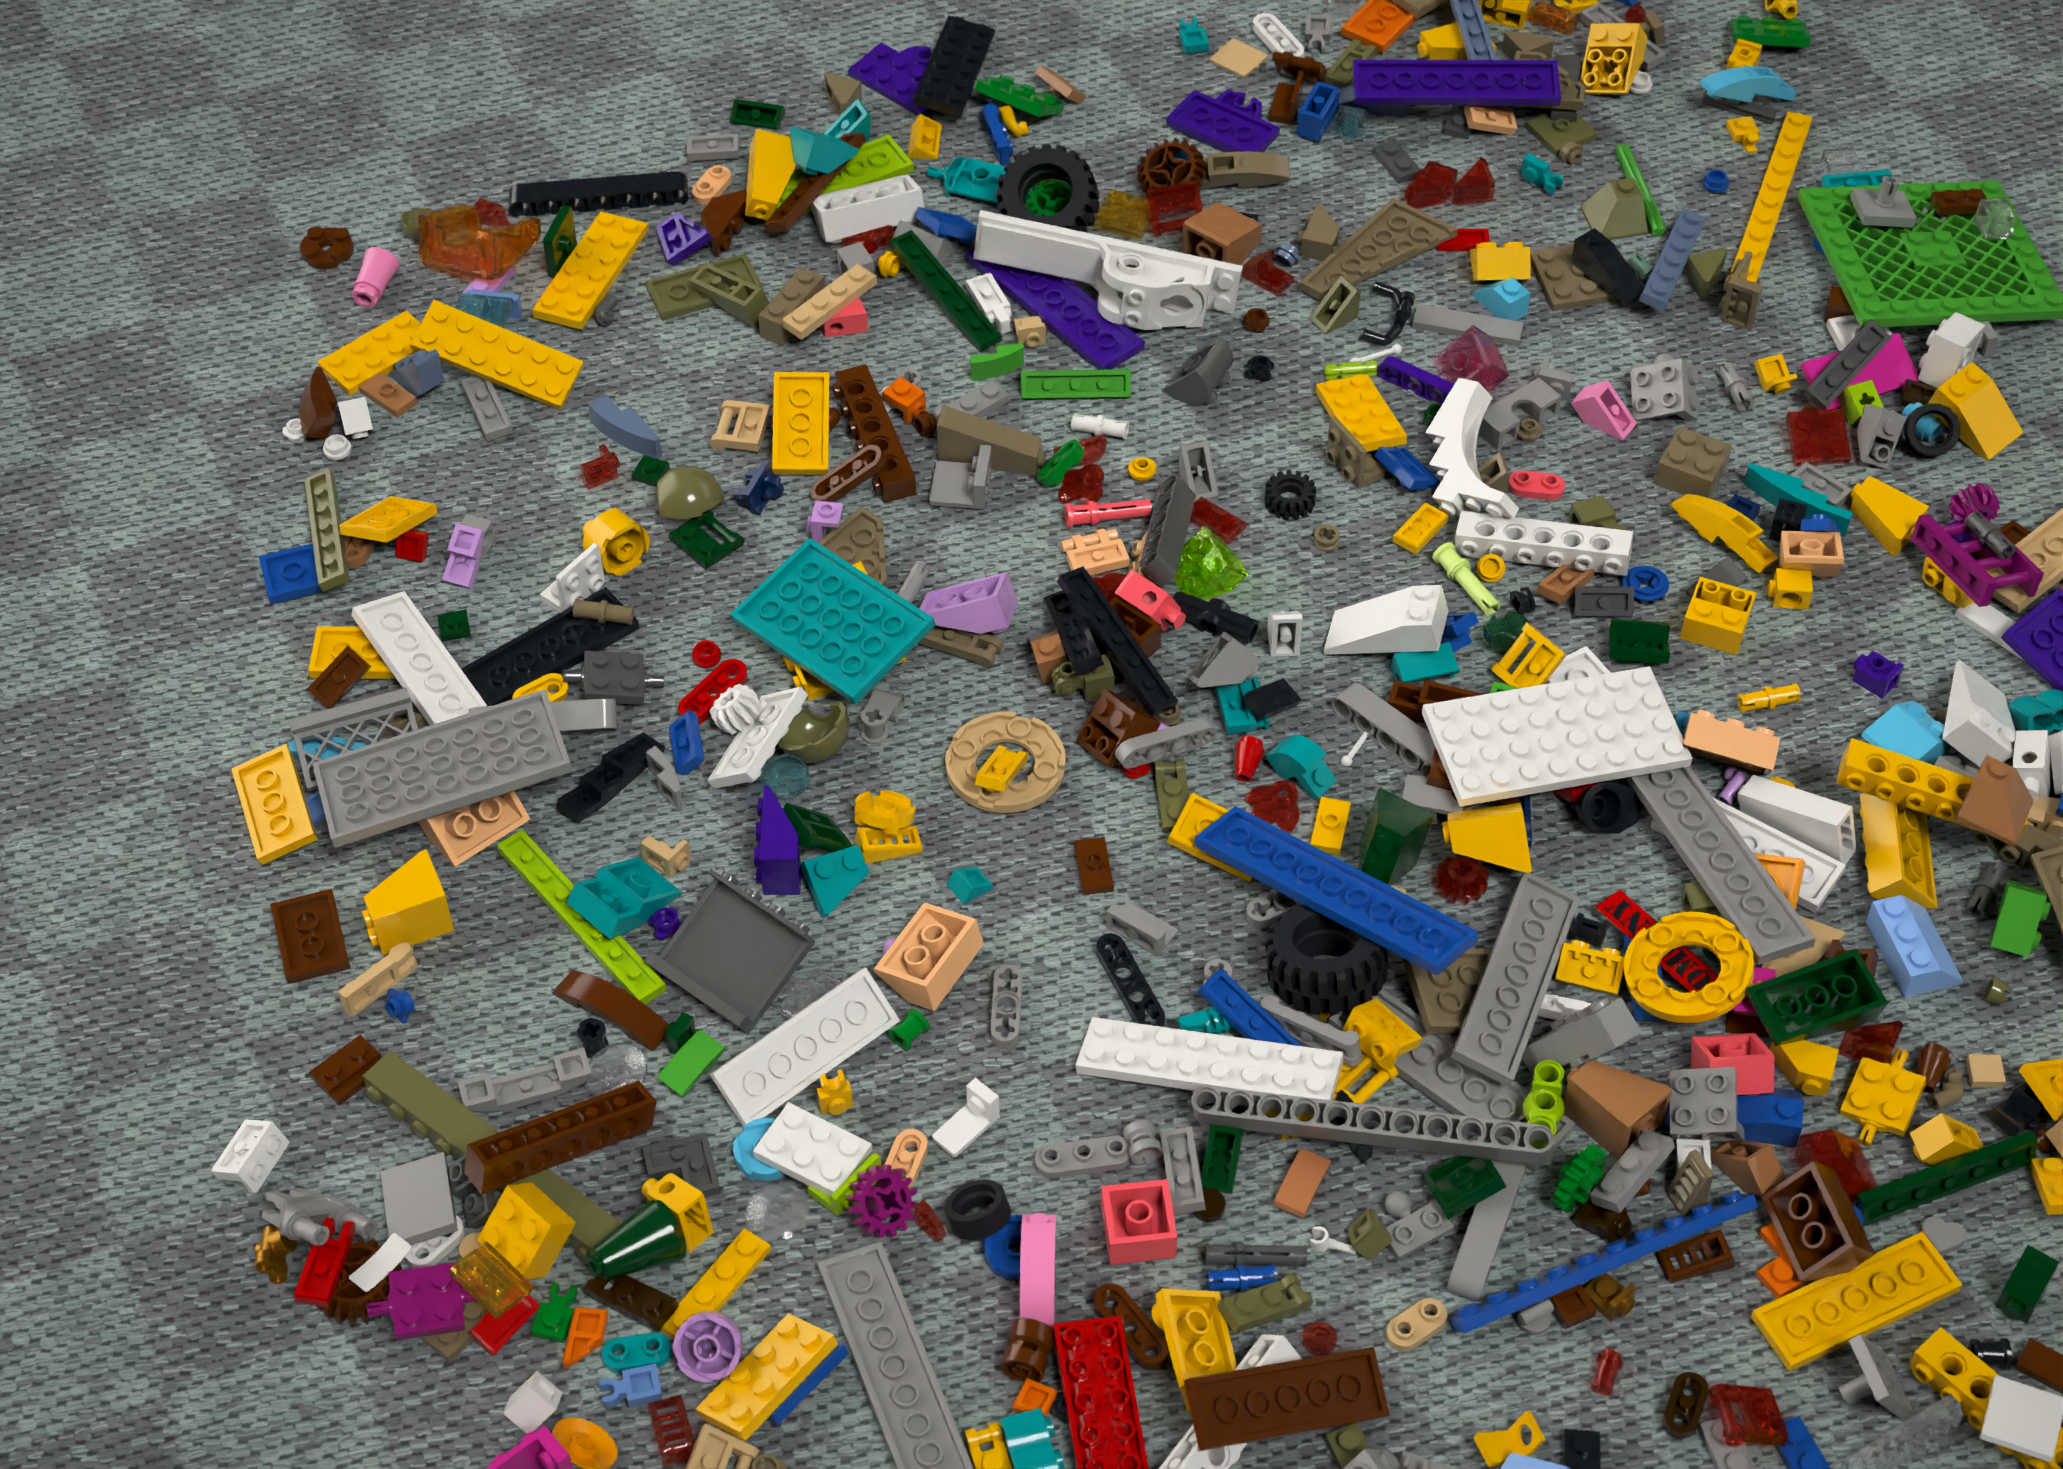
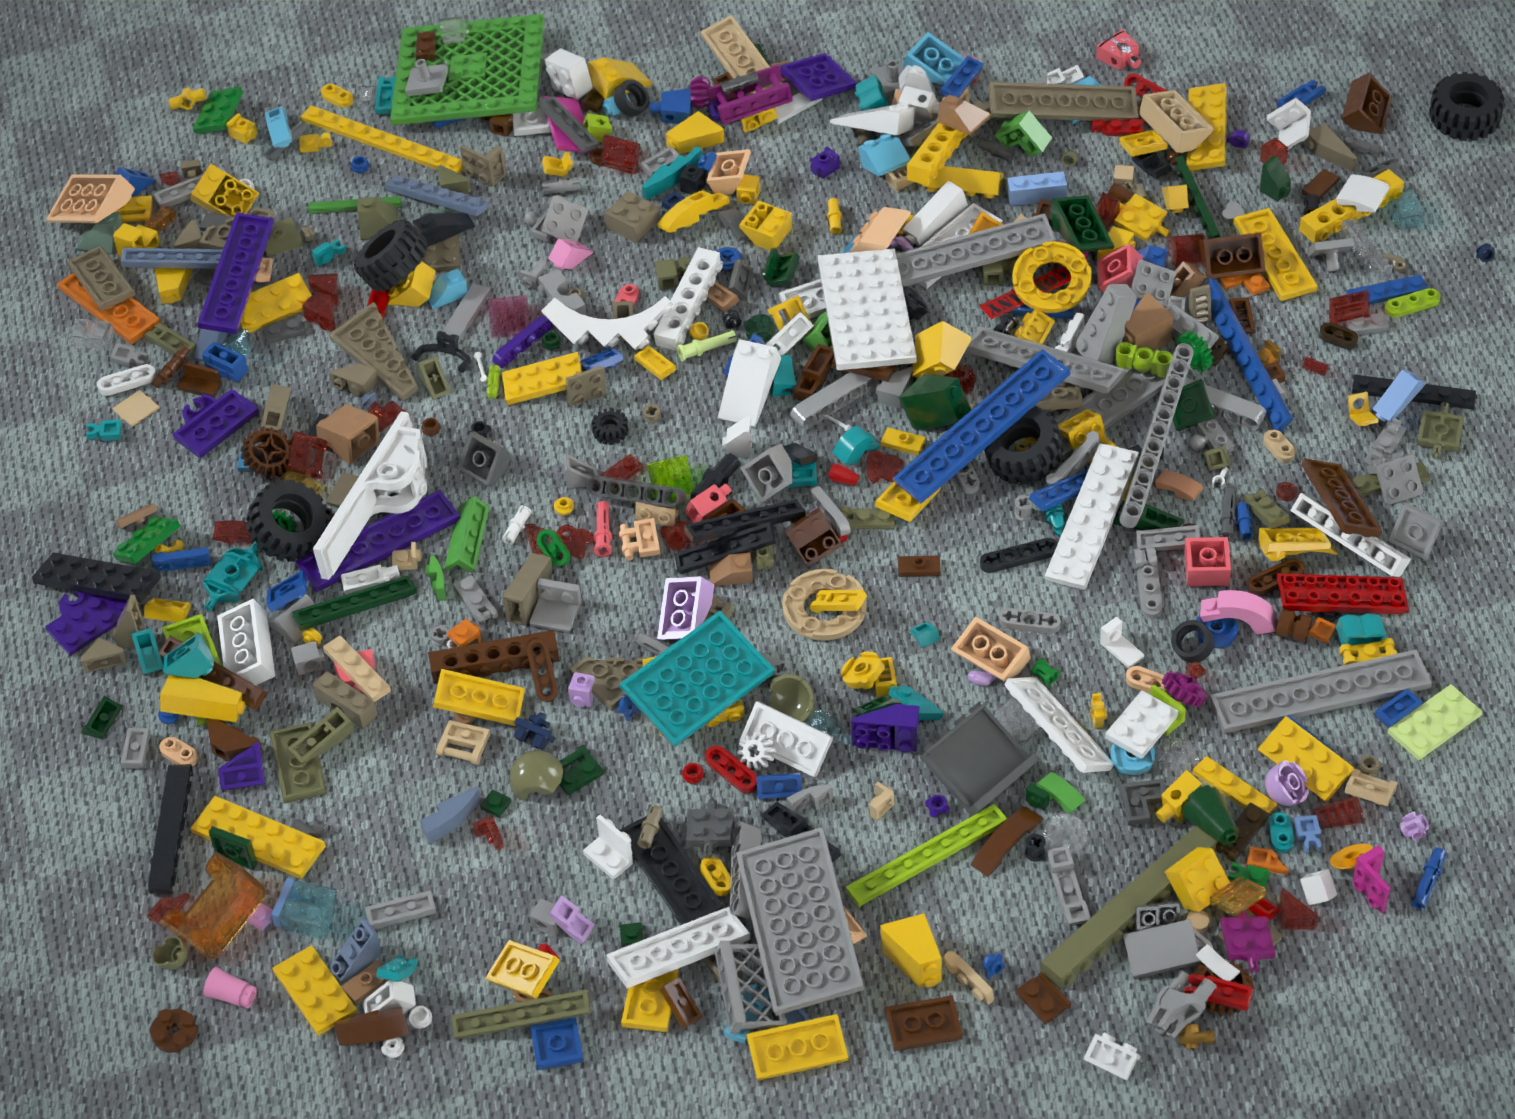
camera: 80 degrees left, 0 degrees up
(388, 407) = (397, 968): none -> teal hinge
(484, 1367) = (1295, 914): none -> clear red slope
(498, 355) = (356, 893): yellow plate -> none
(559, 1137) = (1132, 852): reddish brown brick -> none
(619, 540) = (577, 819): yellow brick -> none
(622, 896) = (917, 825): teal slope -> none
(871, 239) = (283, 649): clear red plate -> none
(876, 97) = (128, 623): none -> dark tan slope
(925, 423) = (489, 625): reddish brown plate -> none
(1140, 927) = (974, 545): light grey panel -> none
(1436, 138) = (275, 303): none -> yellow plate
(1492, 660) = (791, 333): none -> white plate
(1524, 217) = (390, 255): none -> black tyre
(1844, 136) = (337, 95): none -> yellow plate
(1878, 435) = (626, 123): light grey slope -> none
(1936, 482) = (674, 106): none -> blue torso

